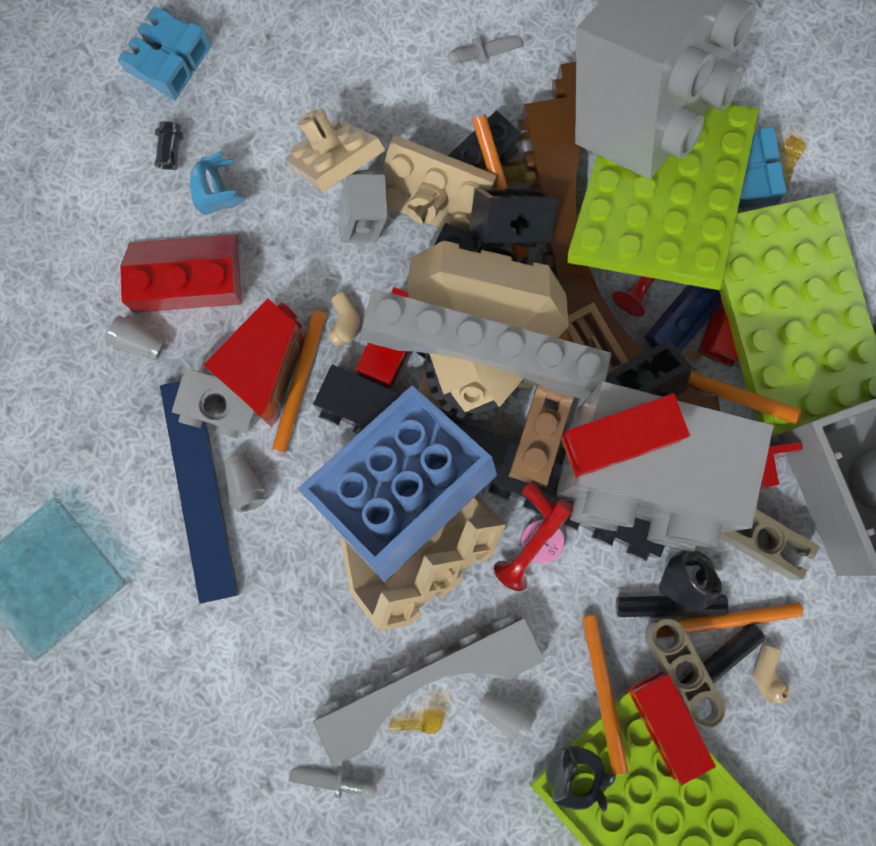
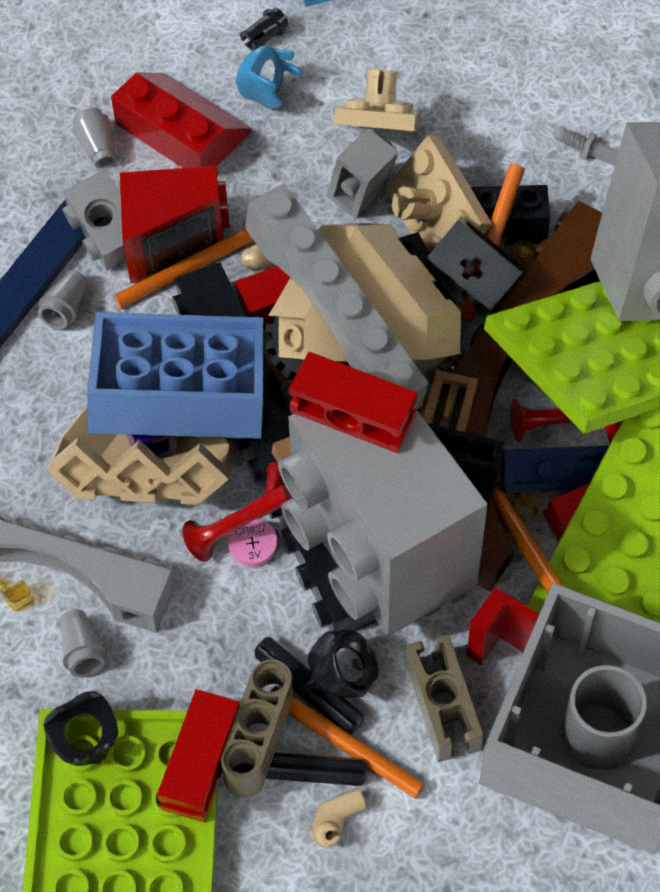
camera: 50 degrees right, 20 degrees down
(605, 695) = (174, 693): orange bar -> none

